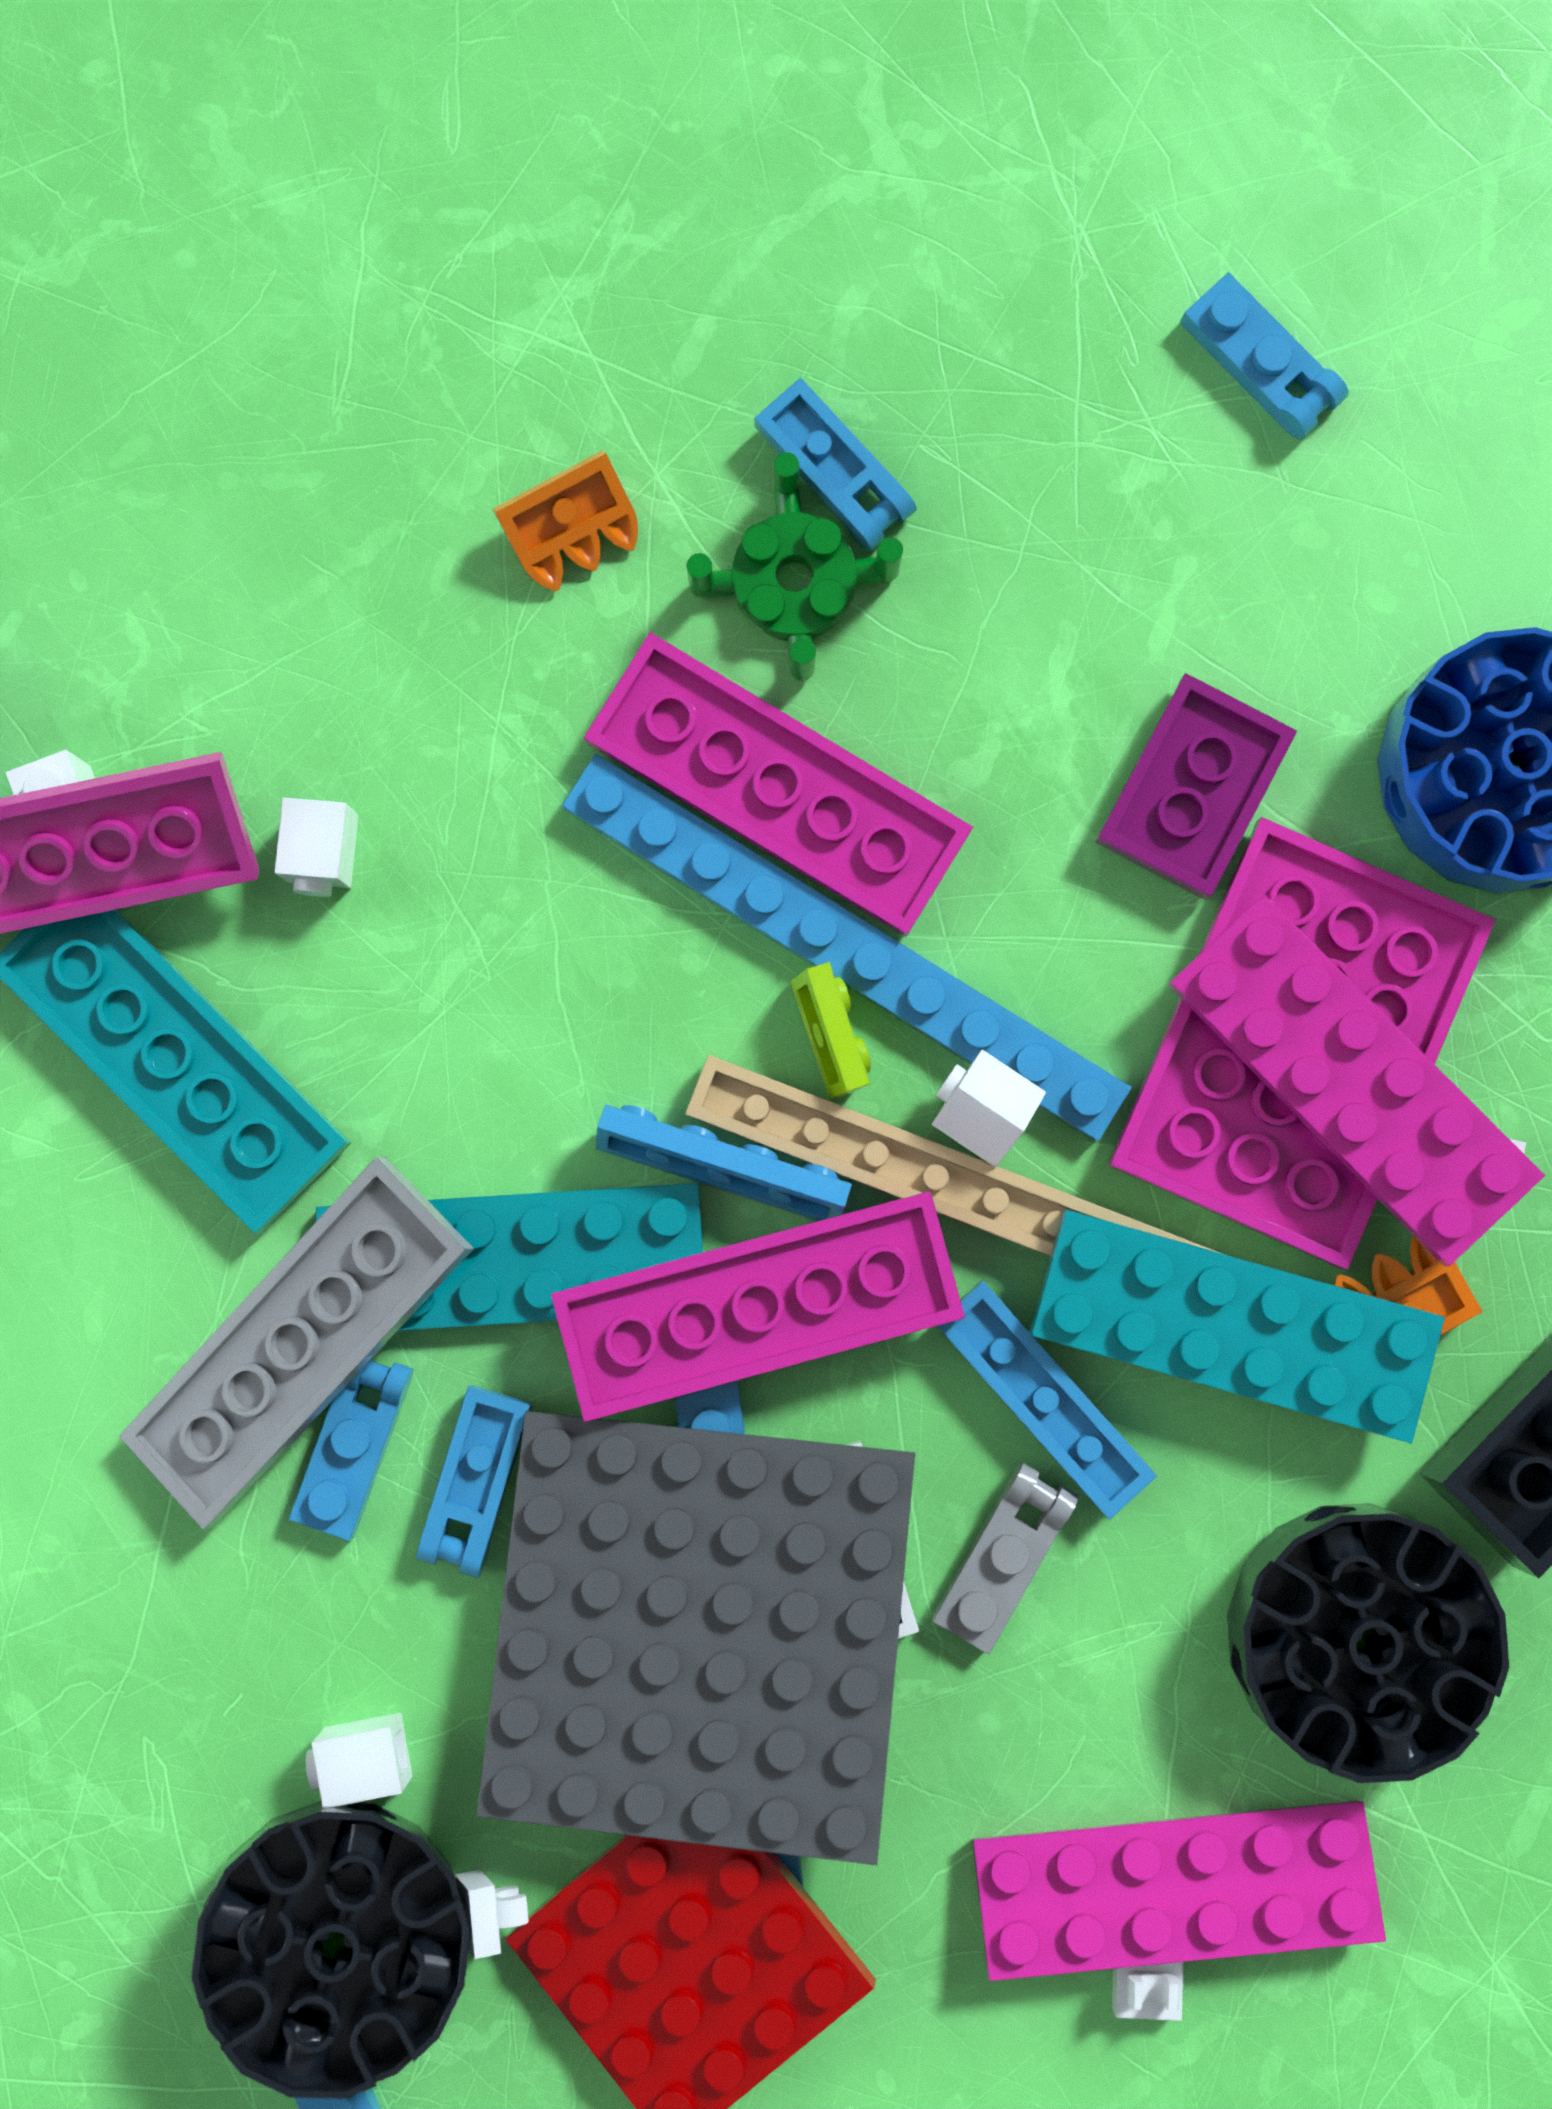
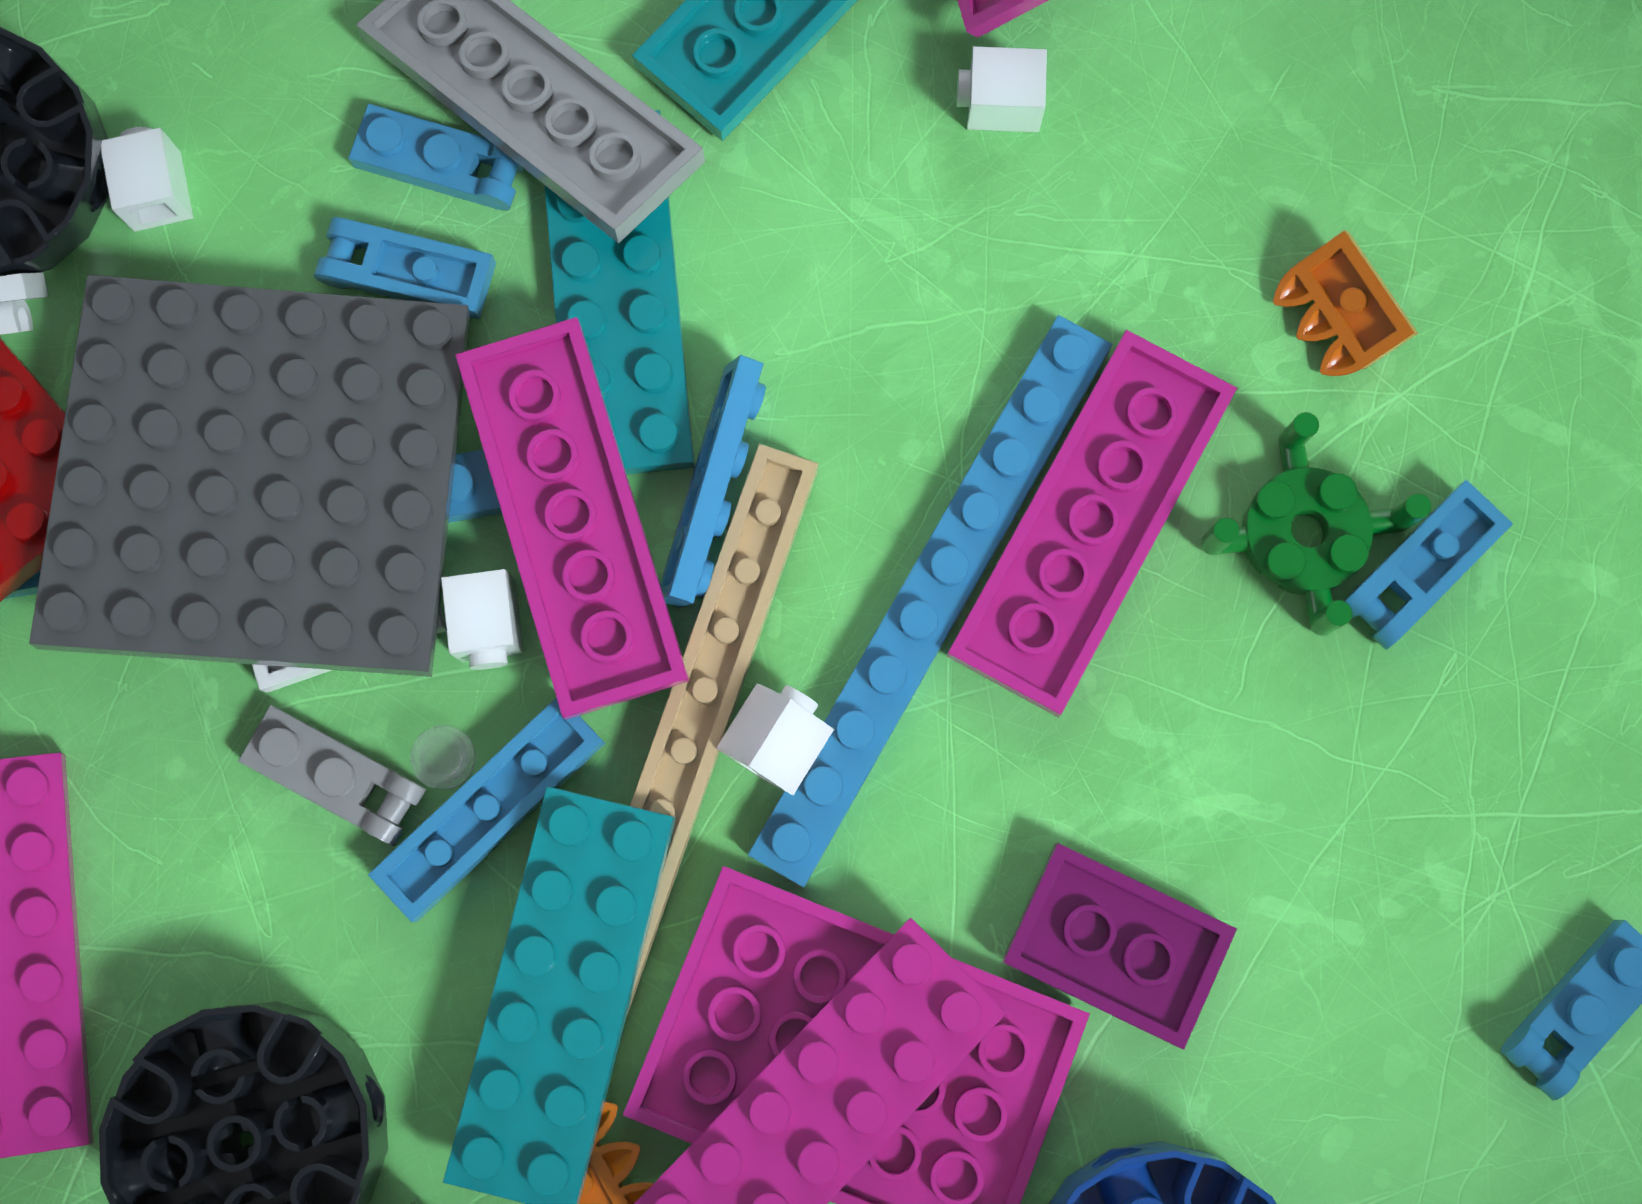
camera: 90 degrees right, 5 degrees down
(824, 1010) = (873, 574): lime plate -> none
(855, 1401) = (482, 618): none -> white brick
(990, 1445) = (442, 757): none -> clear plate

